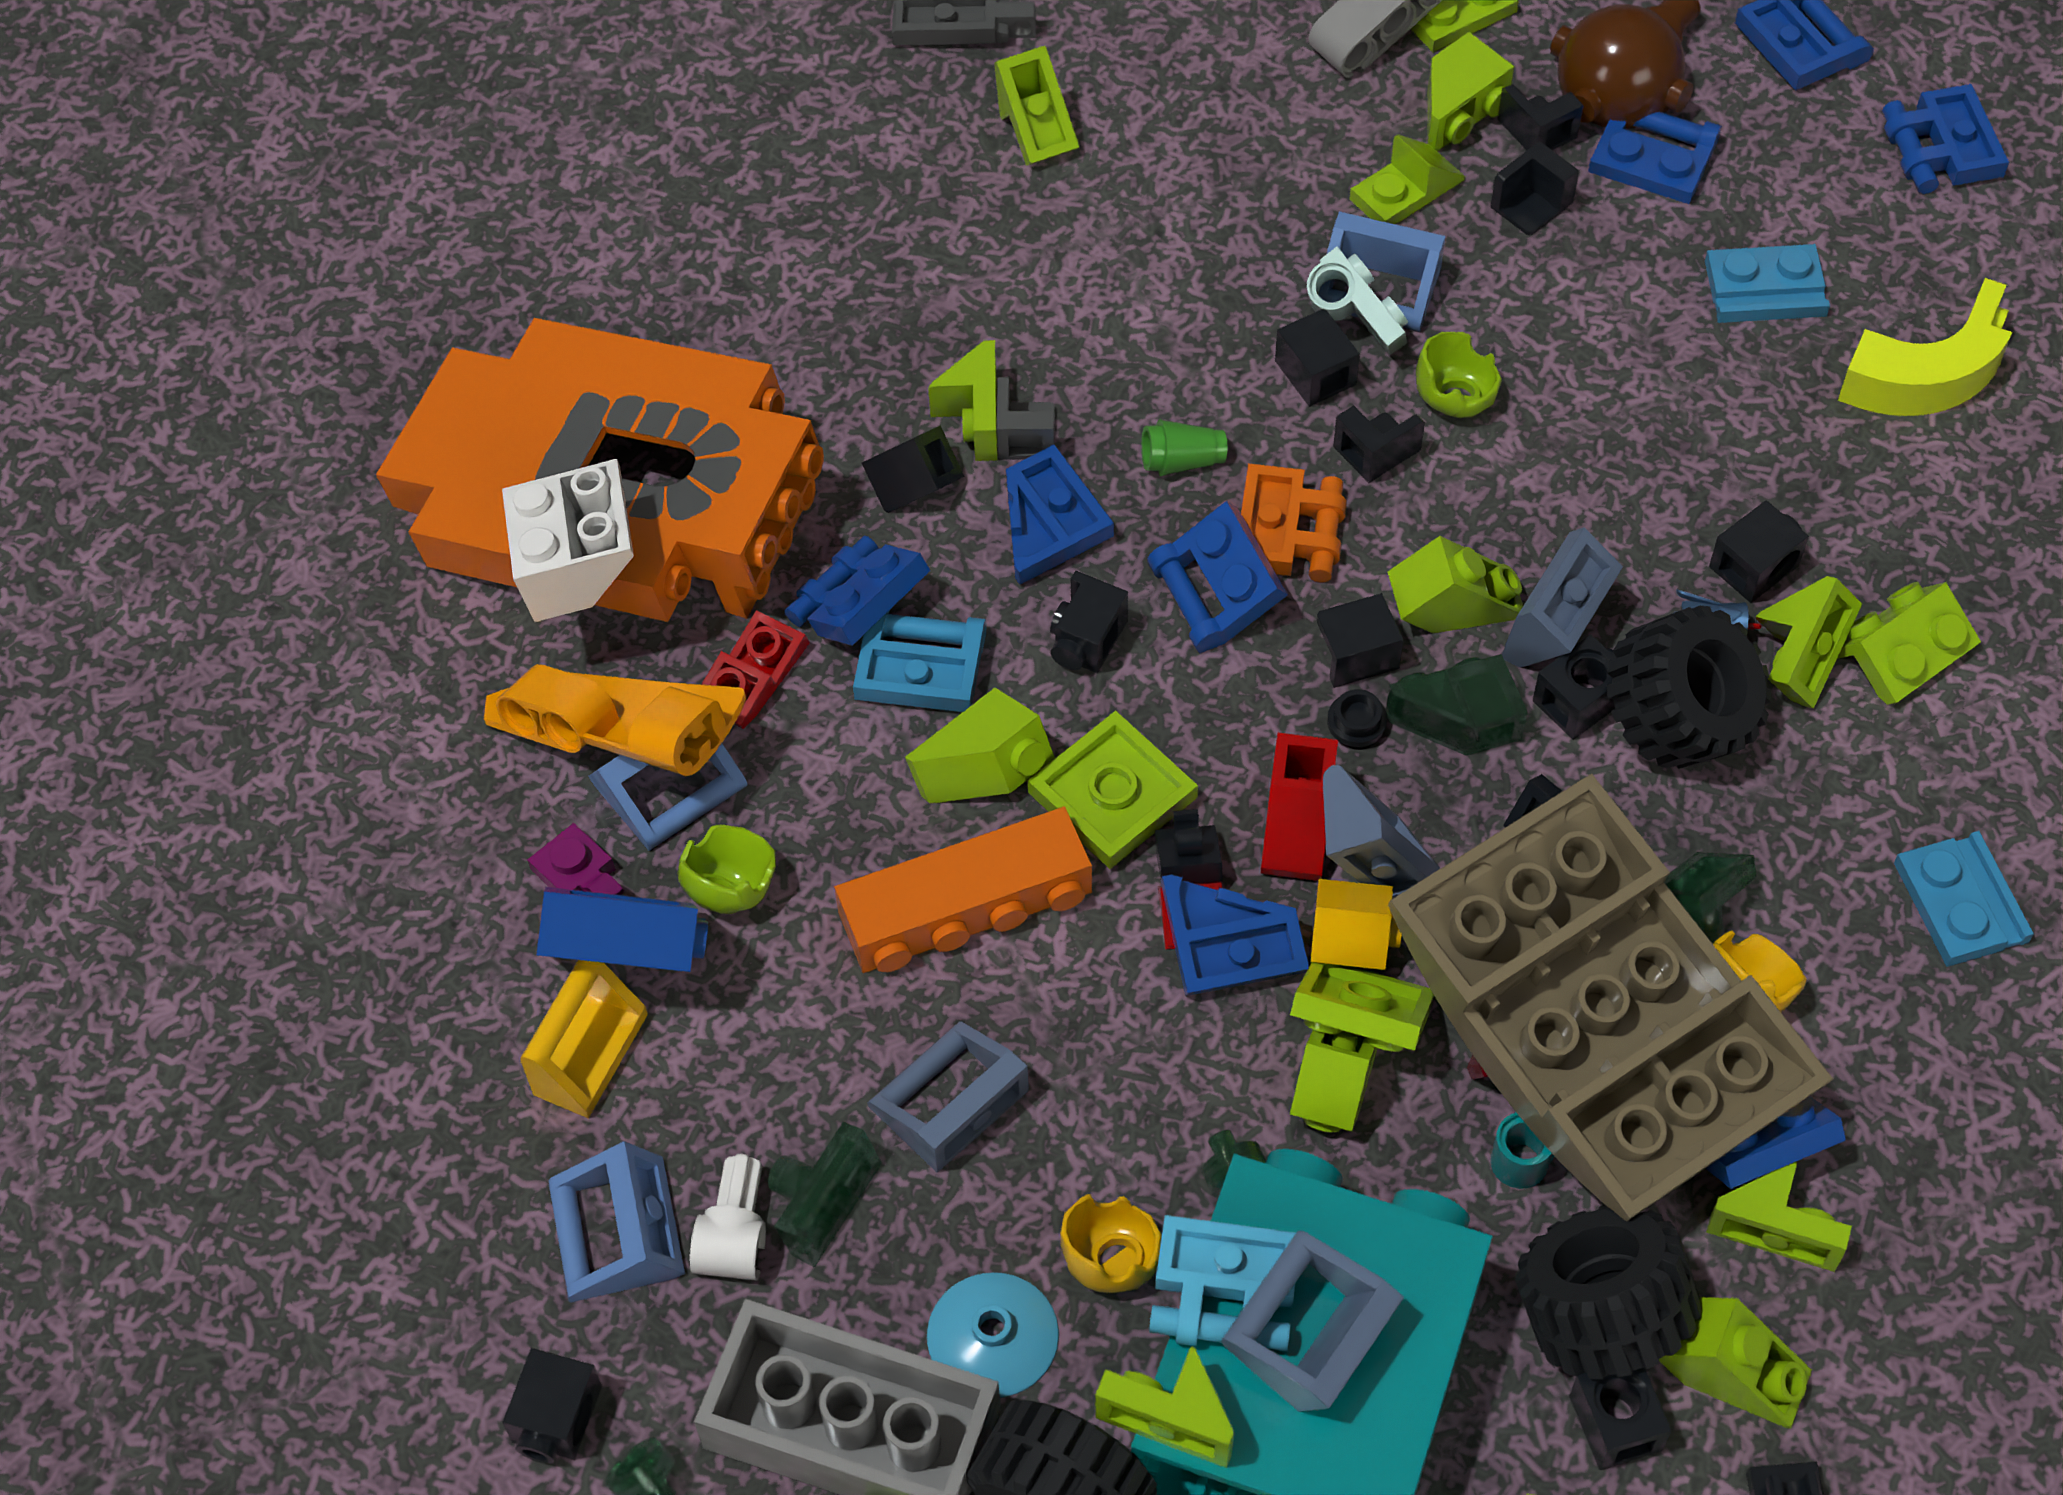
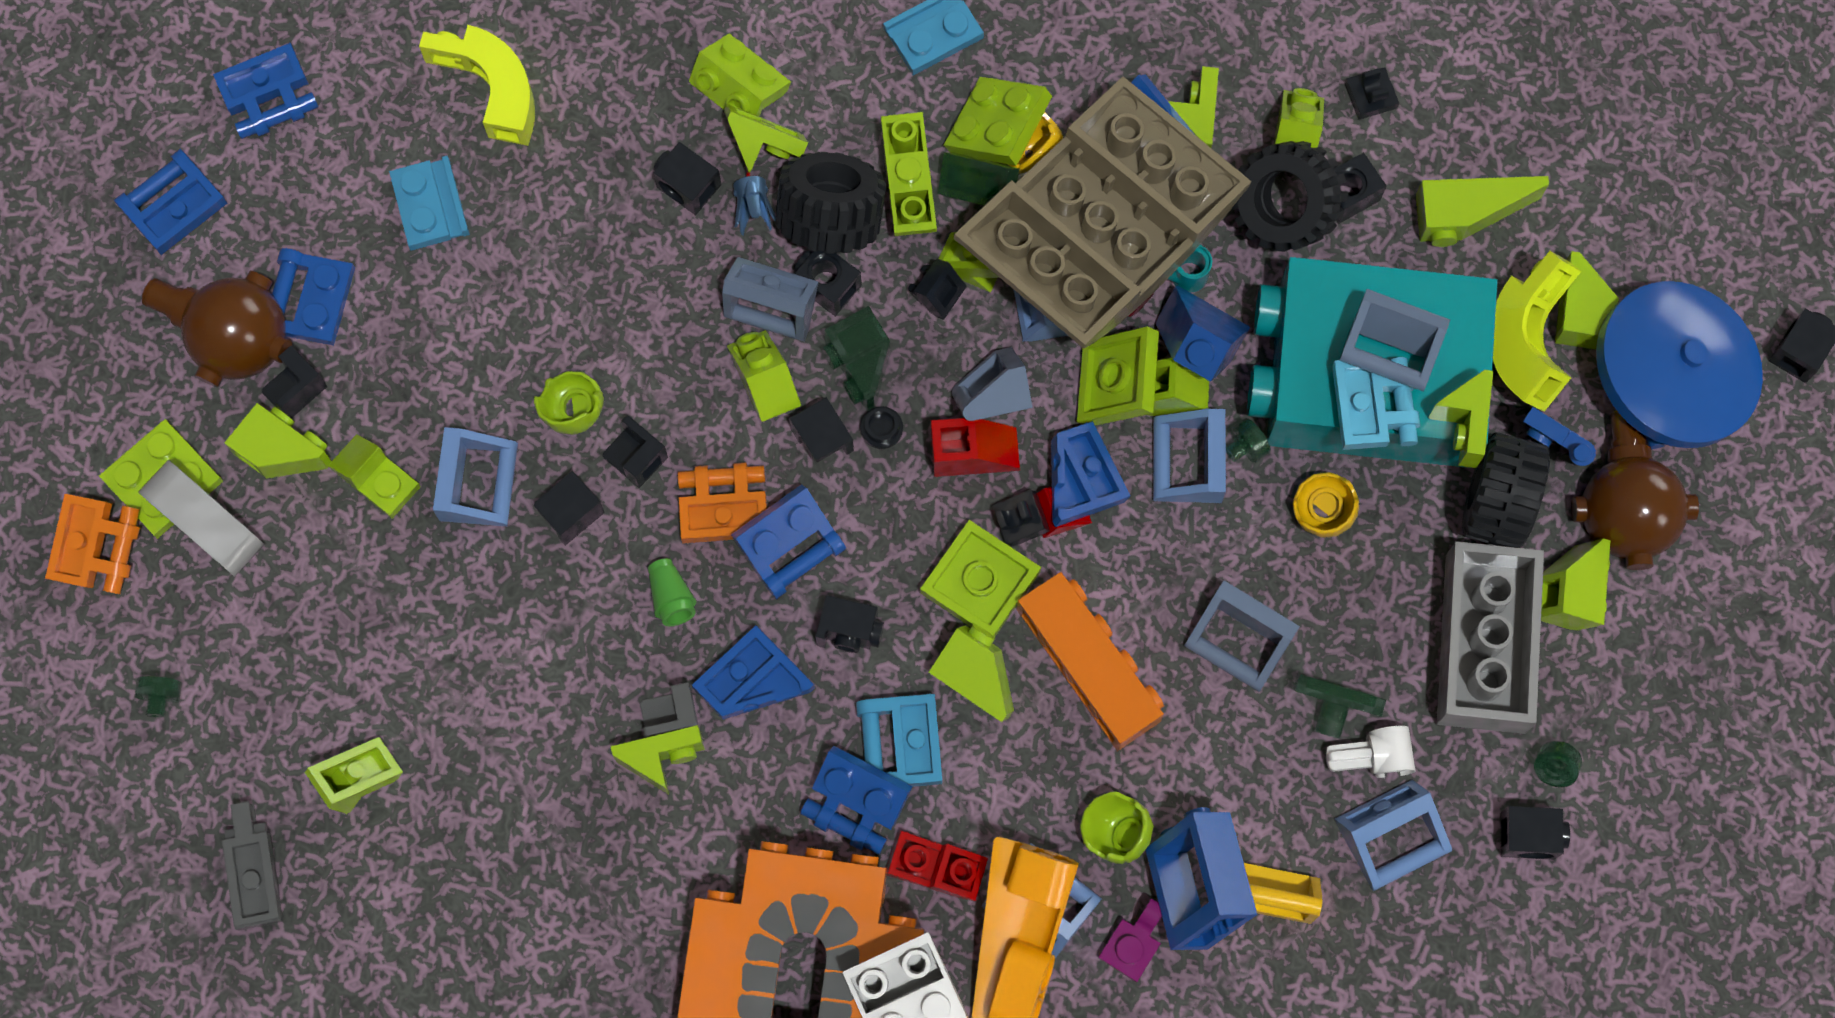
camera: 105 degrees left, 15 degrees up
(913, 469) = (732, 789): black panel -> none
(1012, 1357) = (1384, 589): medium azure dish -> none
(1213, 1109) = (1214, 456): none -> medium blue tile
(1353, 924) = (1057, 396): yellow brick -> none
(1380, 317) = (514, 484): light aqua plate -> none
(1399, 1118) = (1199, 333): none -> blue slope
(1534, 188) = (370, 376): black panel -> none
(1719, 803) = (908, 174): none -> lime slope
(1797, 936) = (998, 120): none -> lime plate

